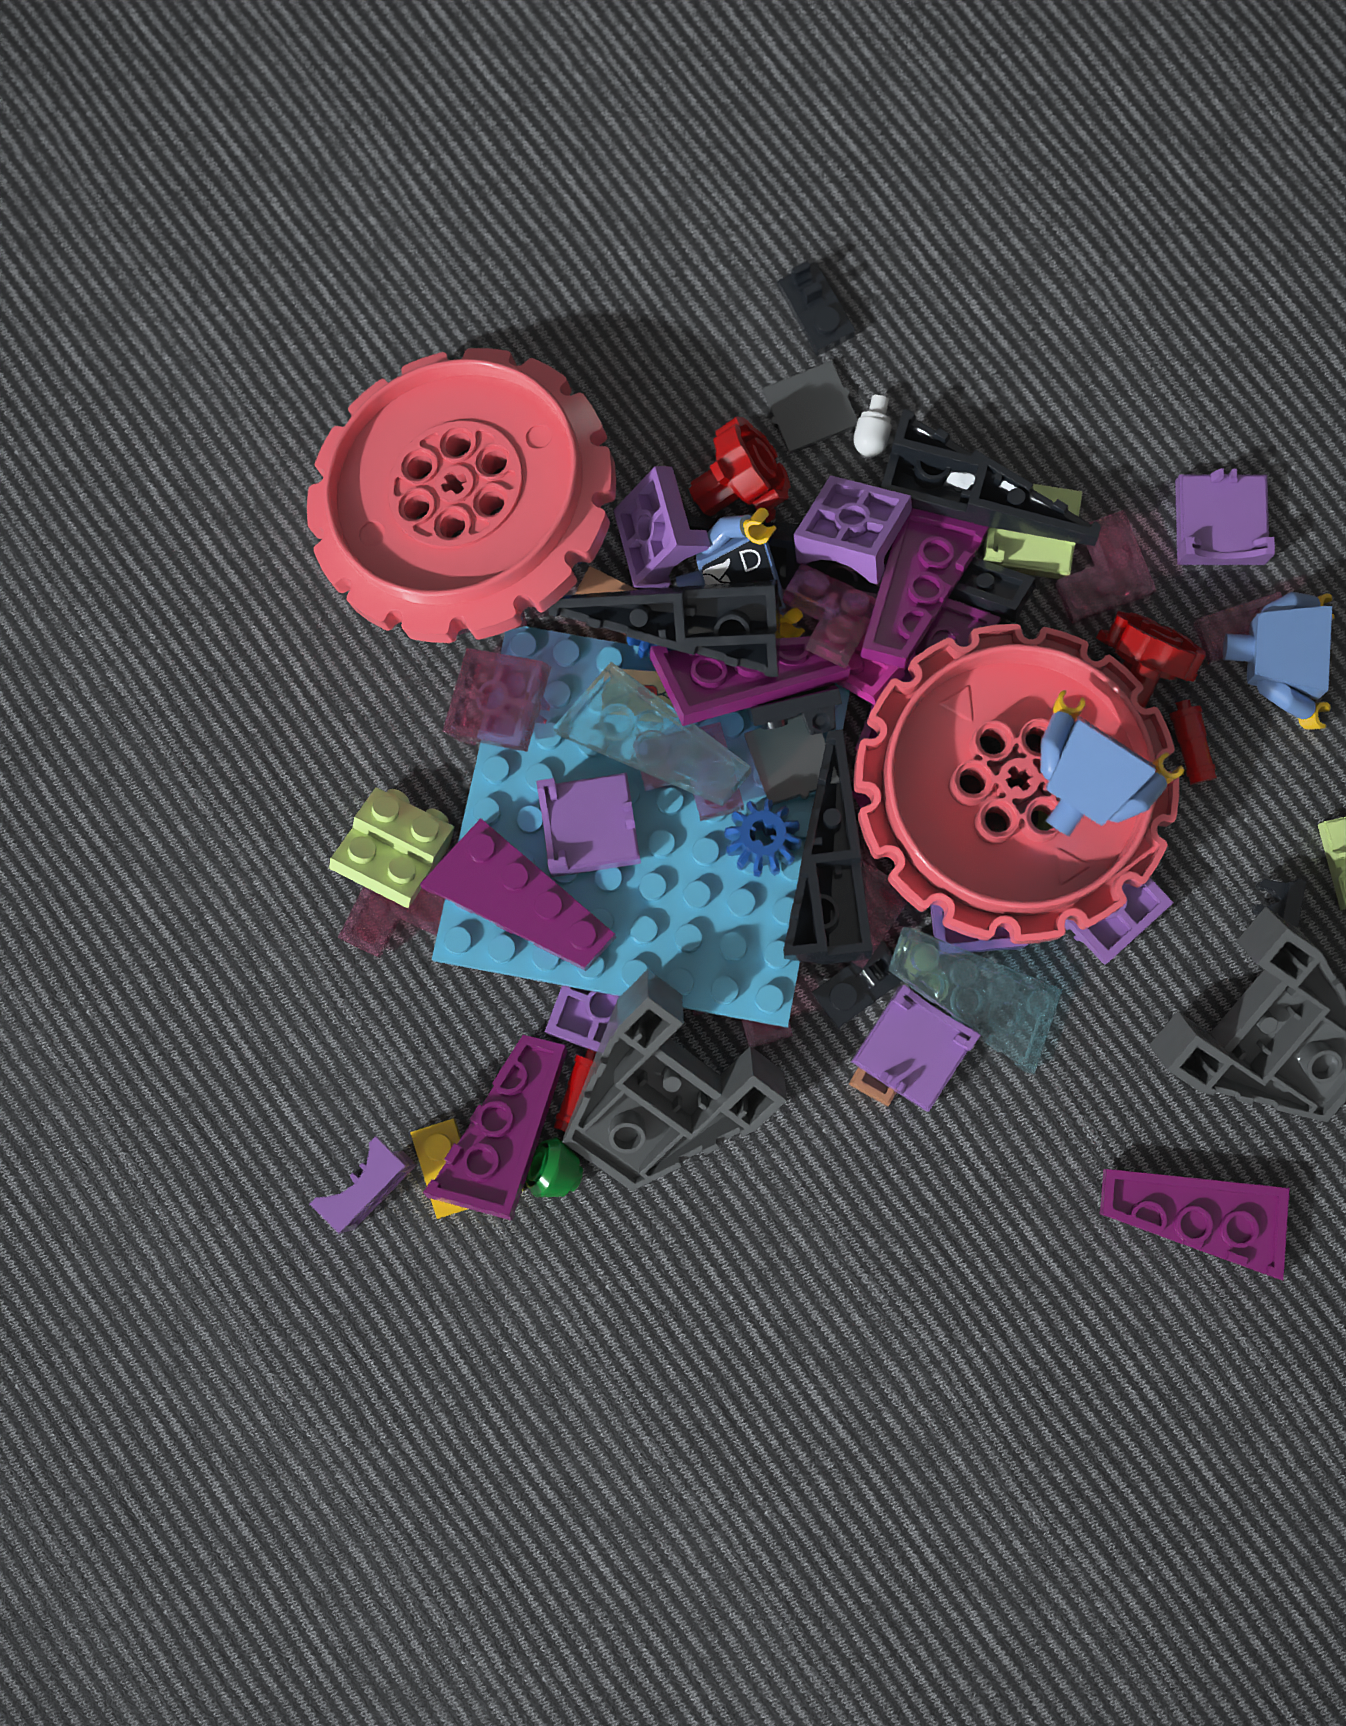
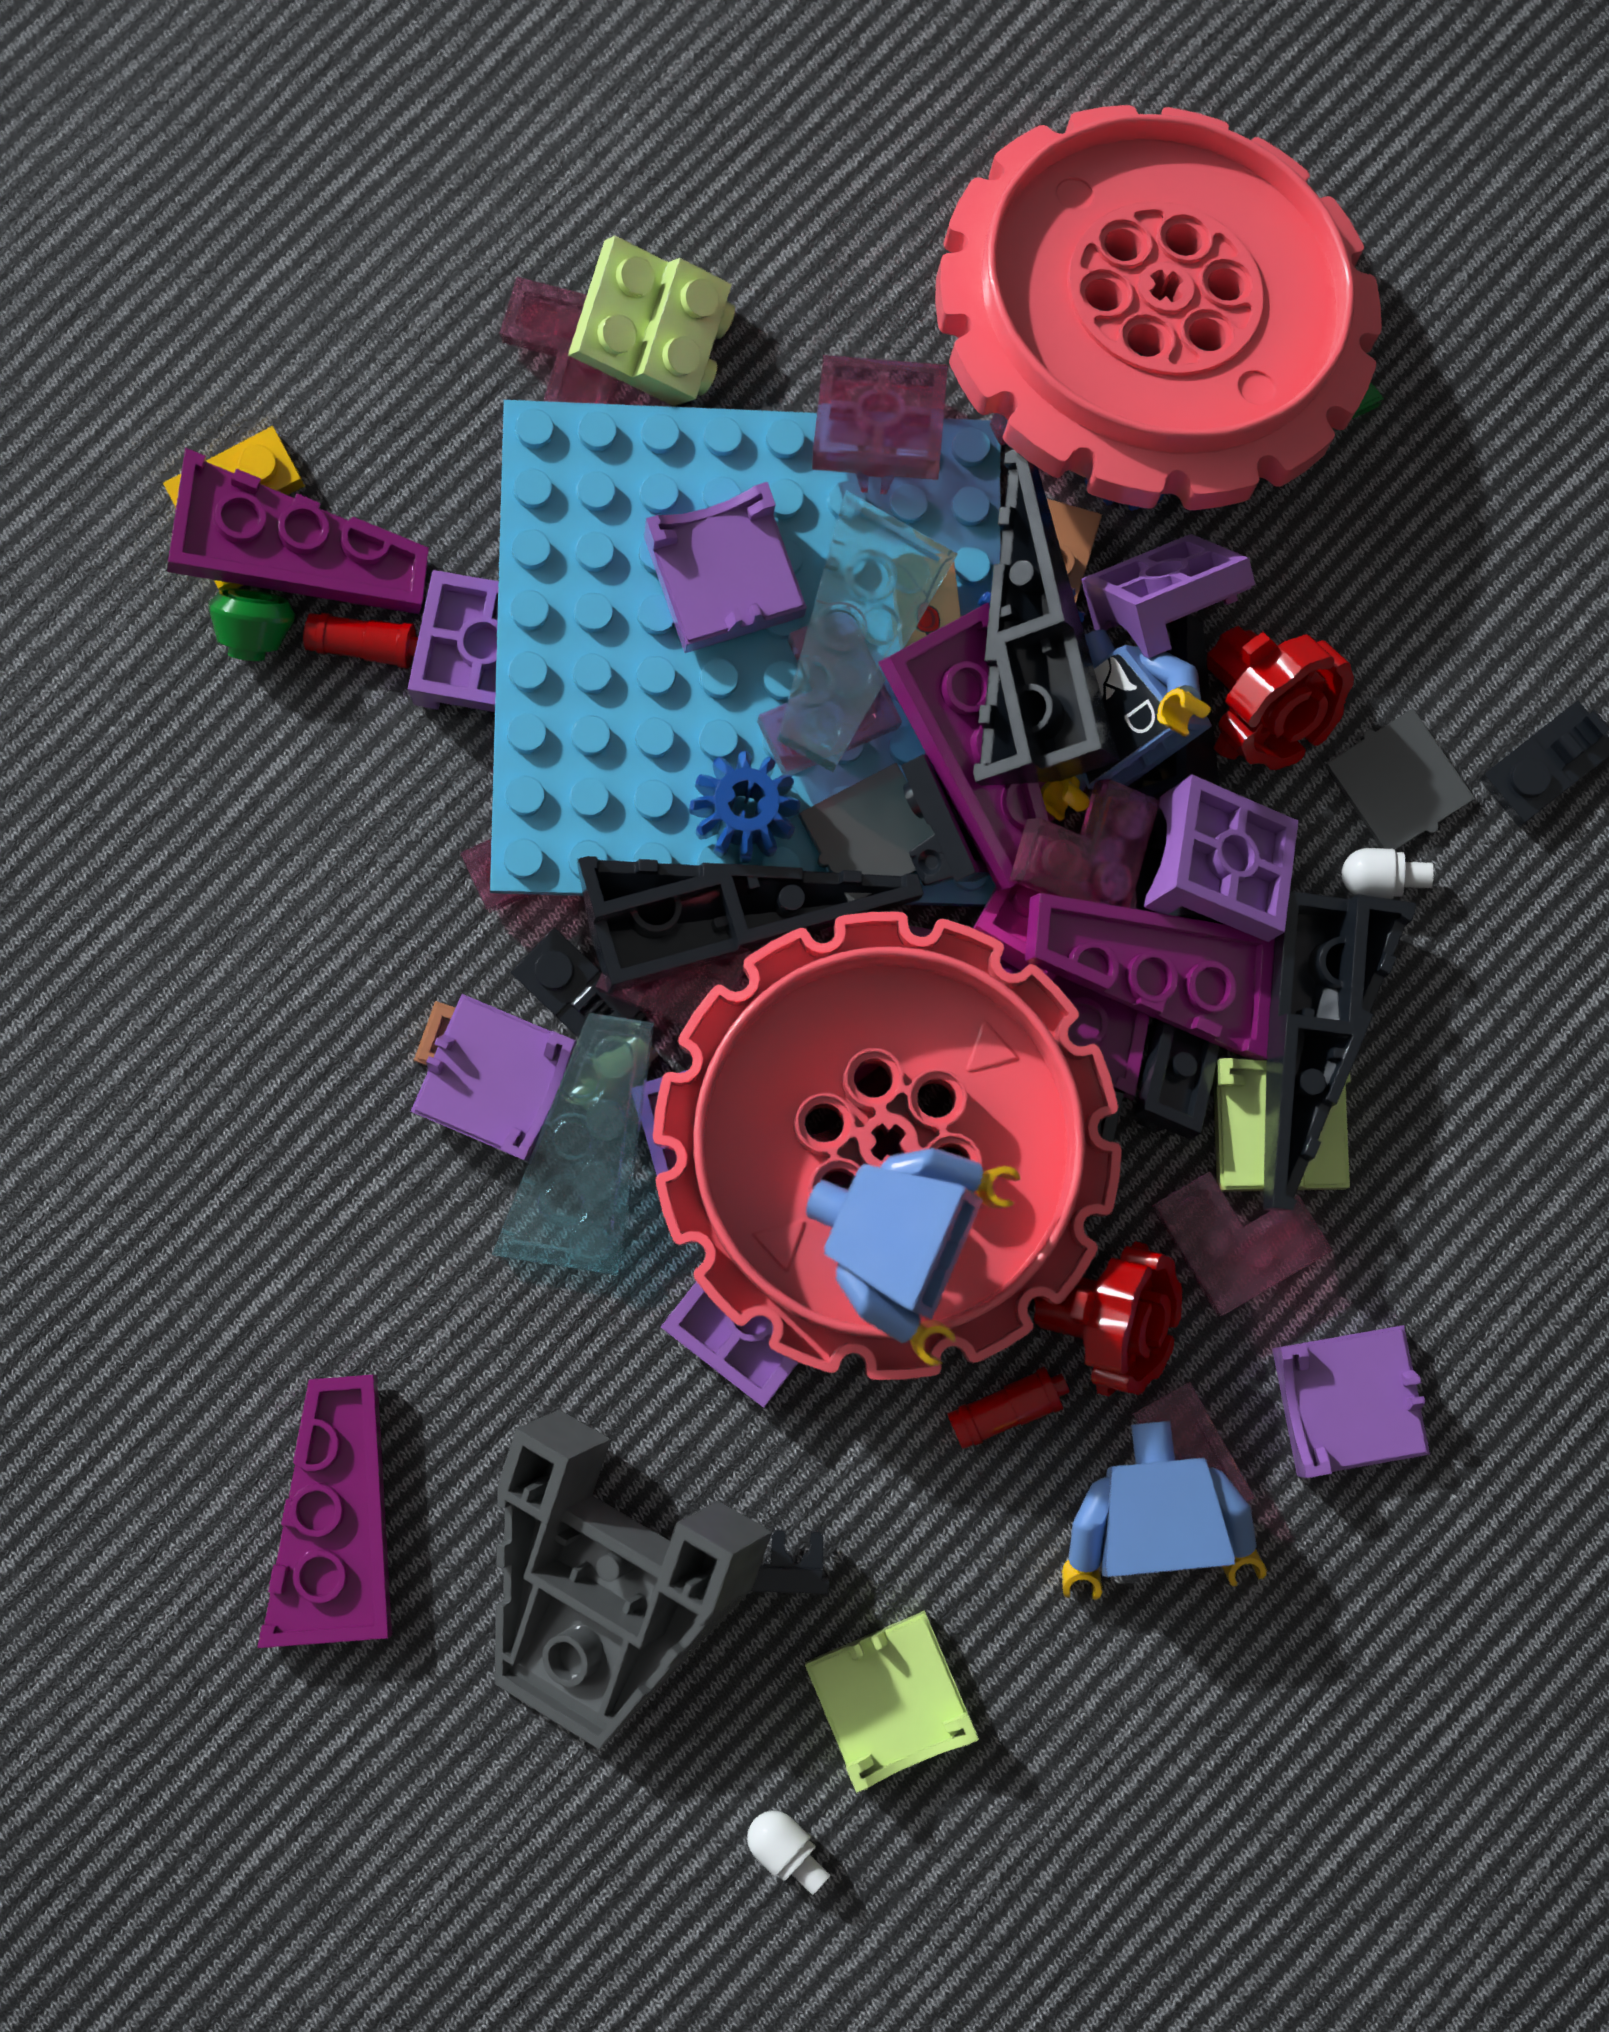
camera: 80 degrees right, 0 degrees up
(380, 1177) = (189, 383): medium lavender piece -> none
(507, 889) = (611, 480): magenta wing -> none
(654, 1100) = (360, 737): dark grey wedge -> none

